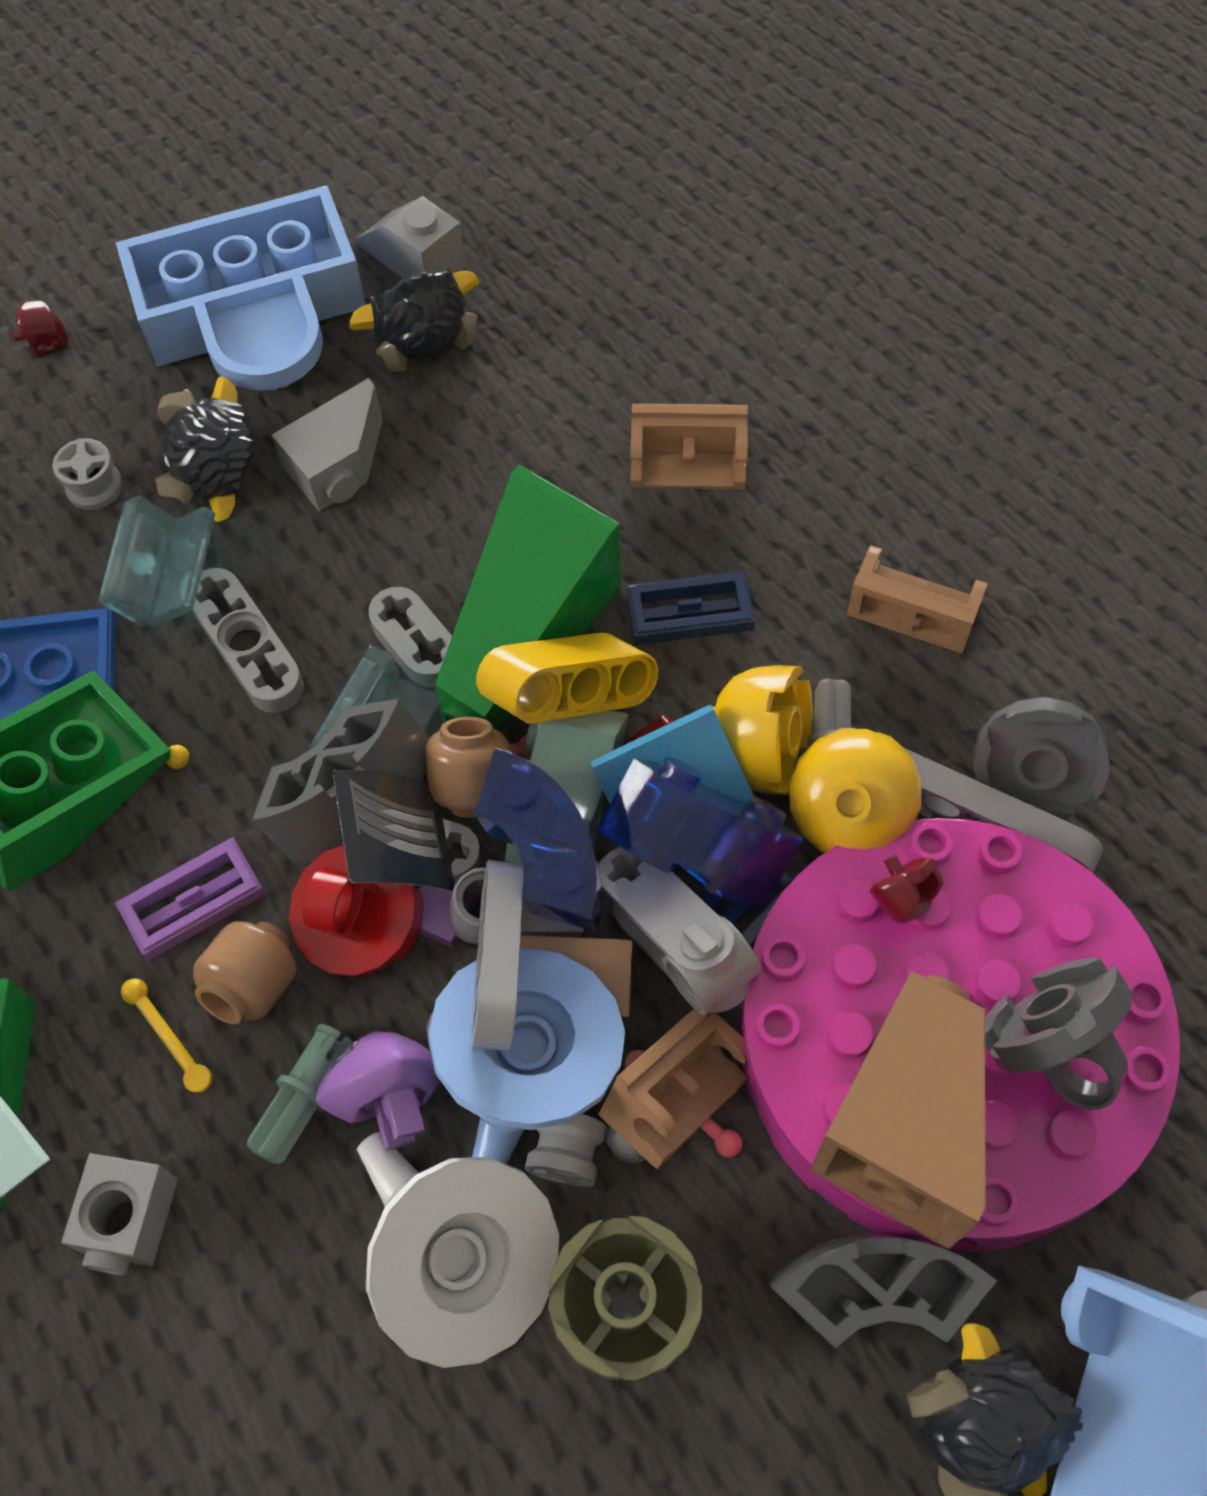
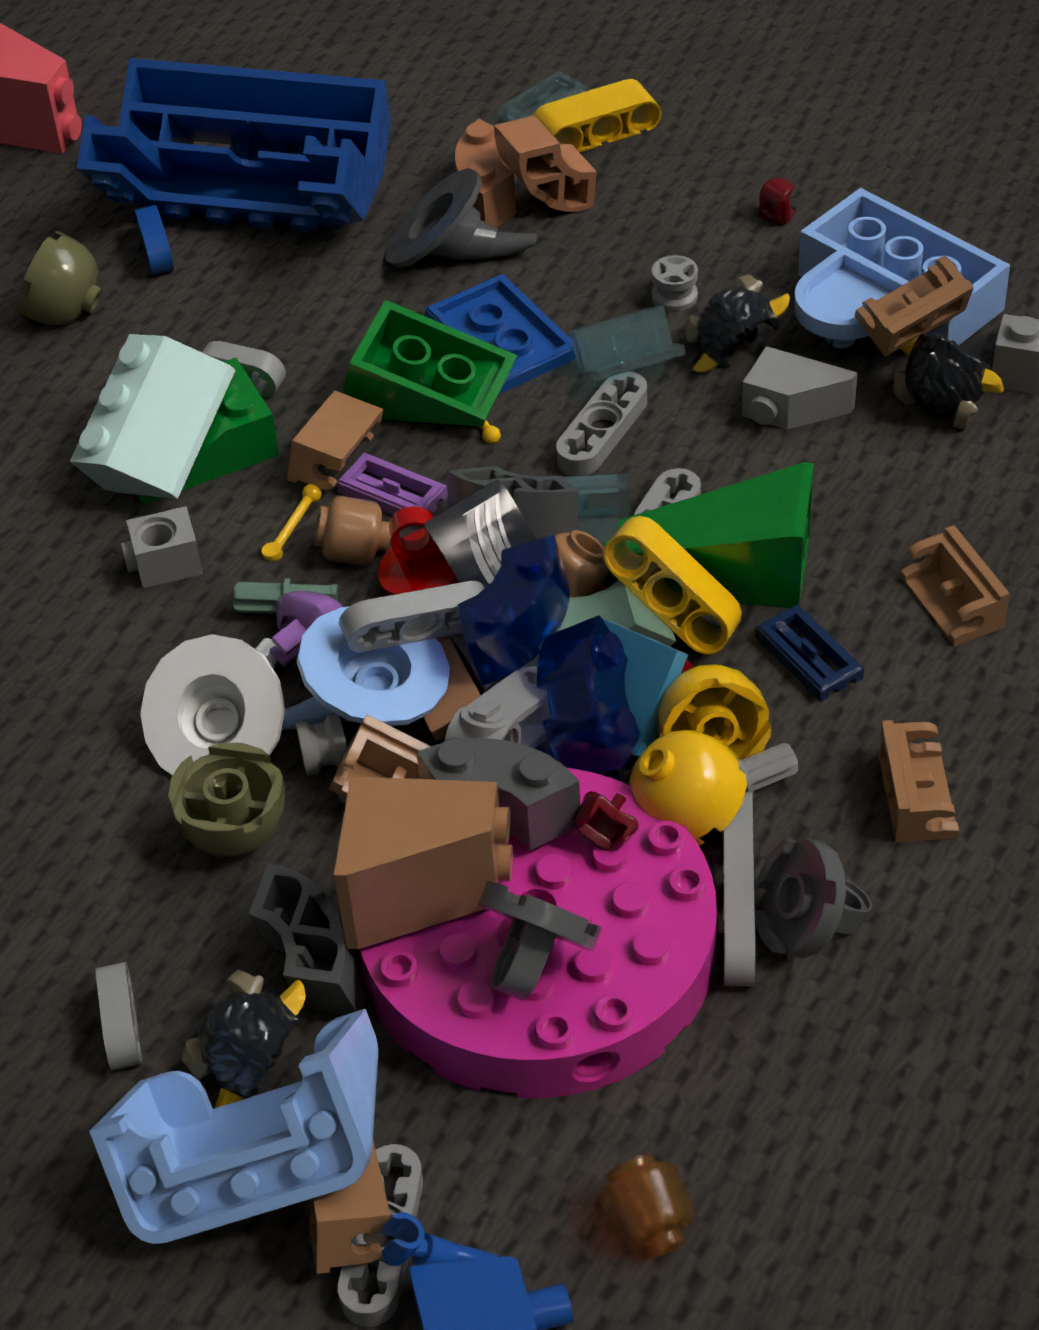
camera: 65 degrees right, 15 degrees down
(84, 927) = (331, 438): none -> medium nougat hinge
(340, 278) = (915, 306): none -> medium nougat hinge
(826, 970) = (532, 784): none -> dark grey brick

